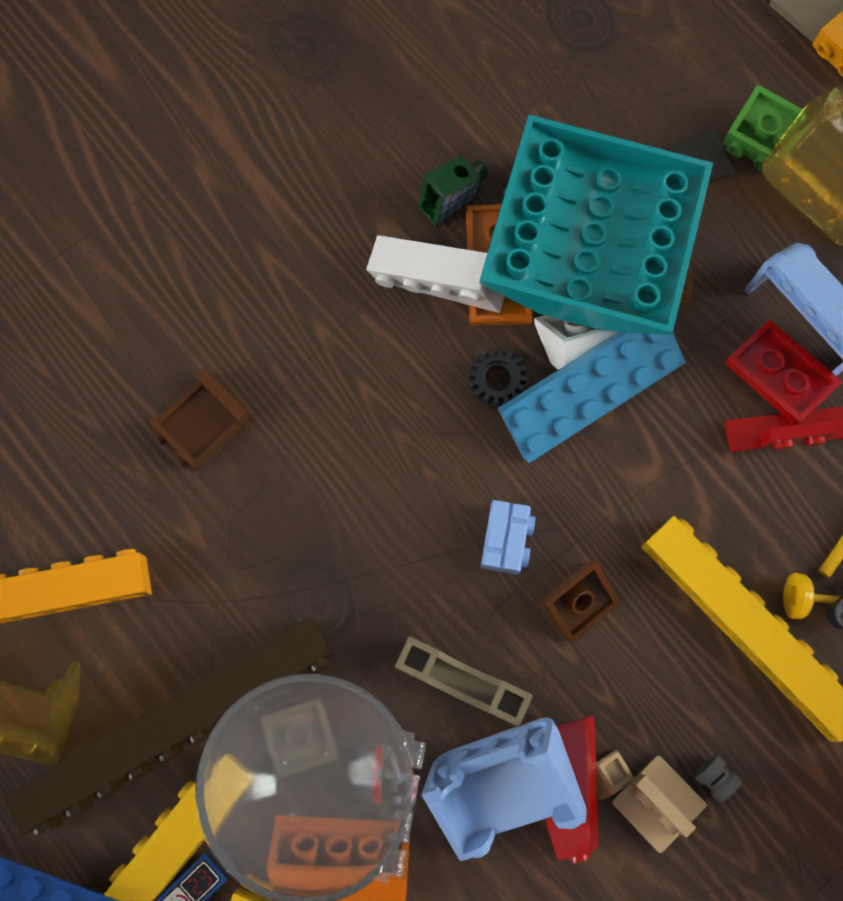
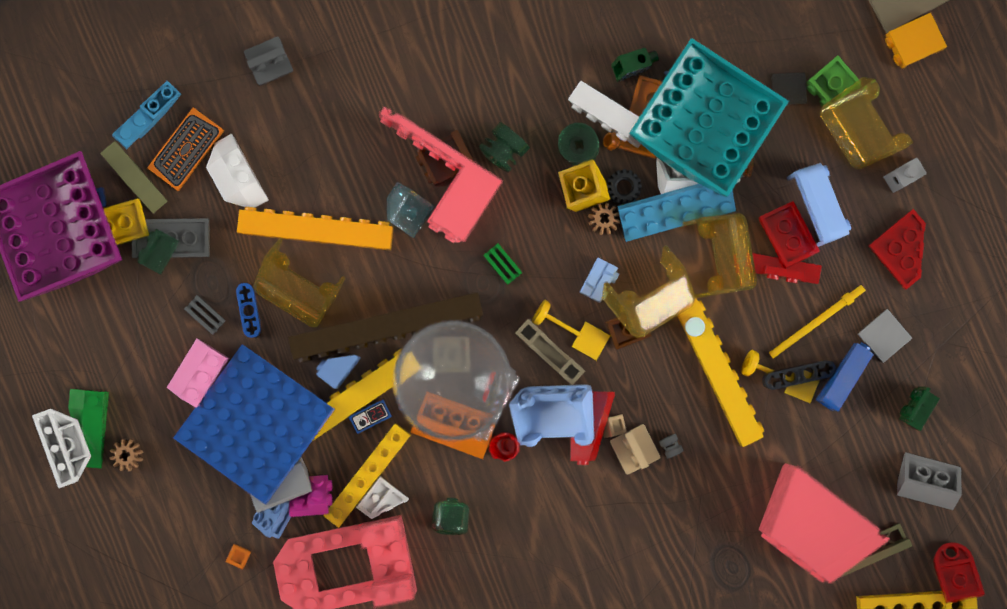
camera: 15 degrees right, 10 degrees up
(108, 829) = (336, 370): none -> medium blue slope
(158, 519) = (407, 209): none -> clear light blue slope
(242, 453) = (467, 192): none -> coral bracket
(290, 365) = (504, 146): none -> clear green wheel
(318, 545) = (492, 251): none -> green tile
(398, 316) = (578, 133): none -> clear green wheel
(433, 394) = (583, 186): none -> yellow slope
(436, 872) = (504, 446): none -> red hair
(455, 314) = (611, 141): none -> orange plate
(494, 435) = (610, 219): none -> medium nougat gear
(522, 638) = (589, 339): none -> yellow piece
(607, 562) = (657, 307): none -> clear yellow windscreen
(689, 563) = (695, 326): none -> light aqua tile
(700, 426) = (731, 253): none -> clear yellow windscreen

